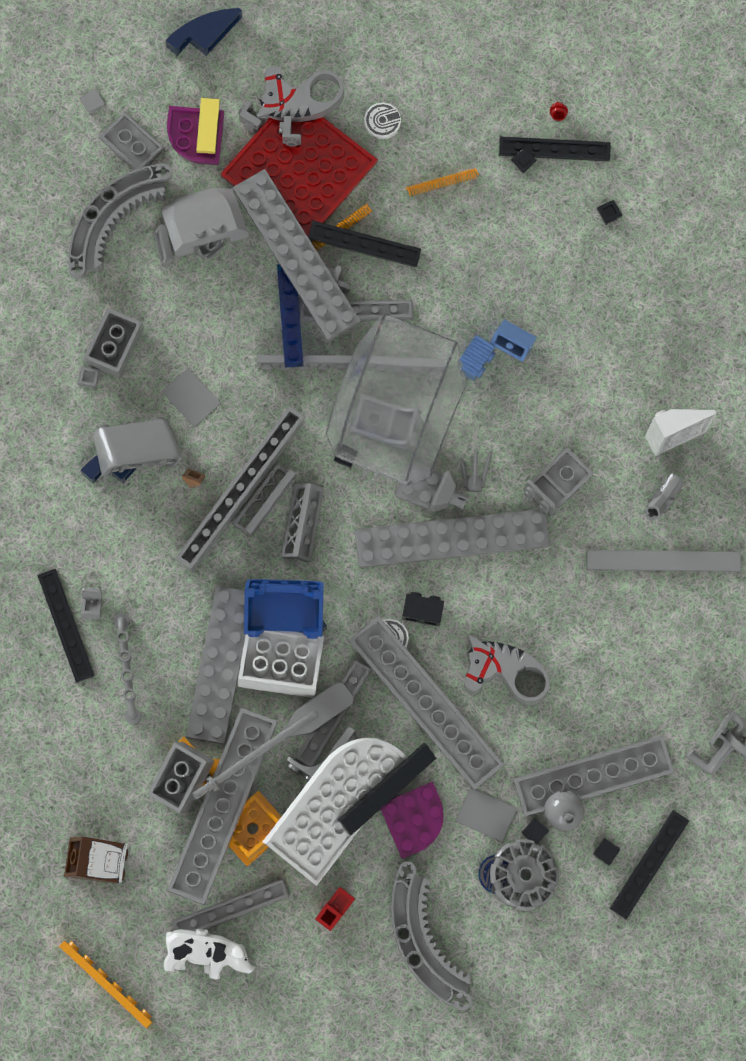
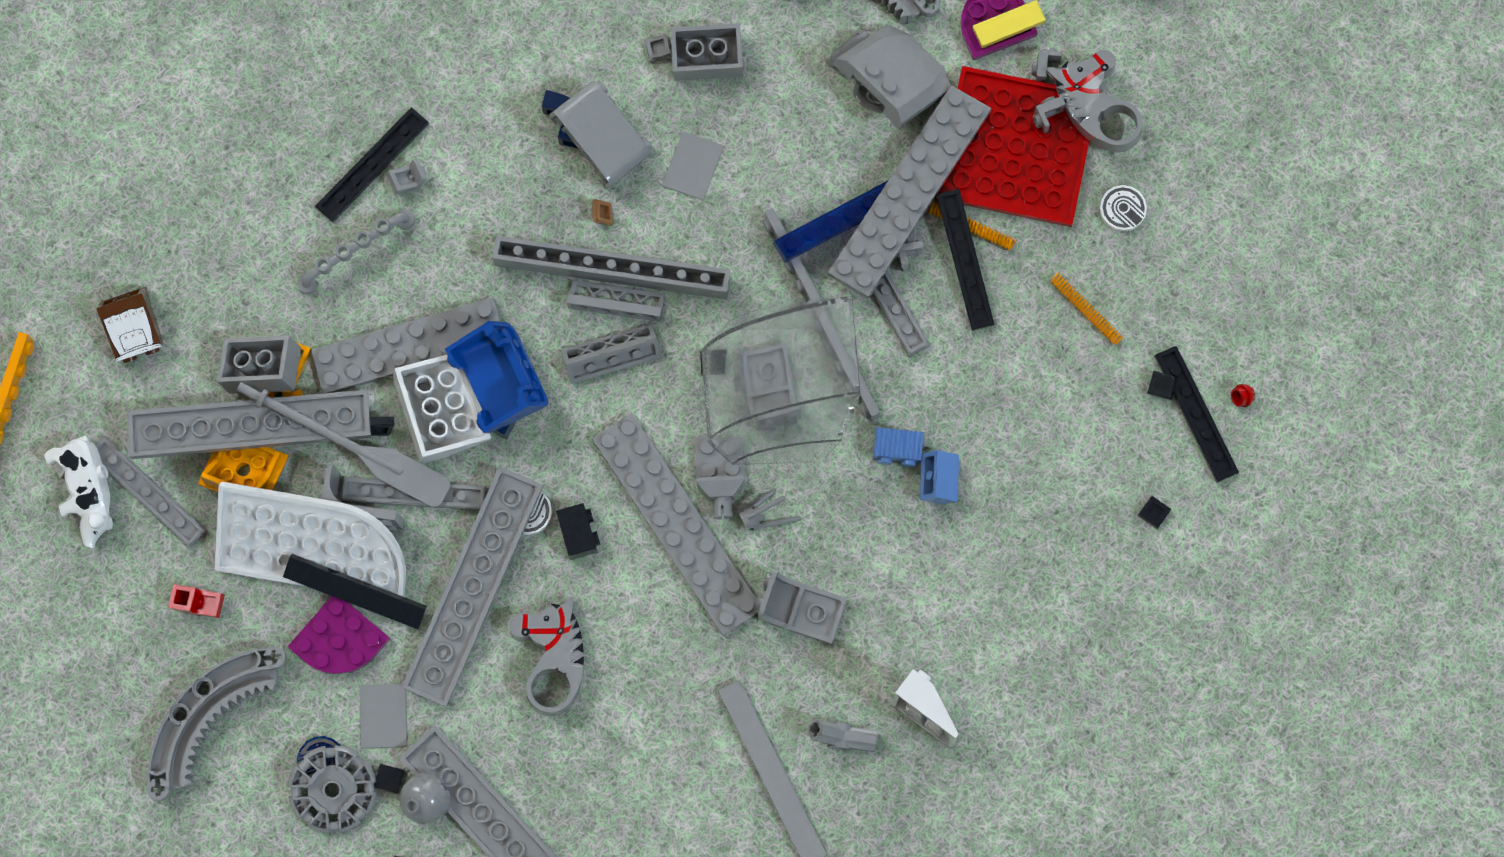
camera: 70 degrees right, 0 degrees up
(272, 710) = (381, 426): none -> black tile

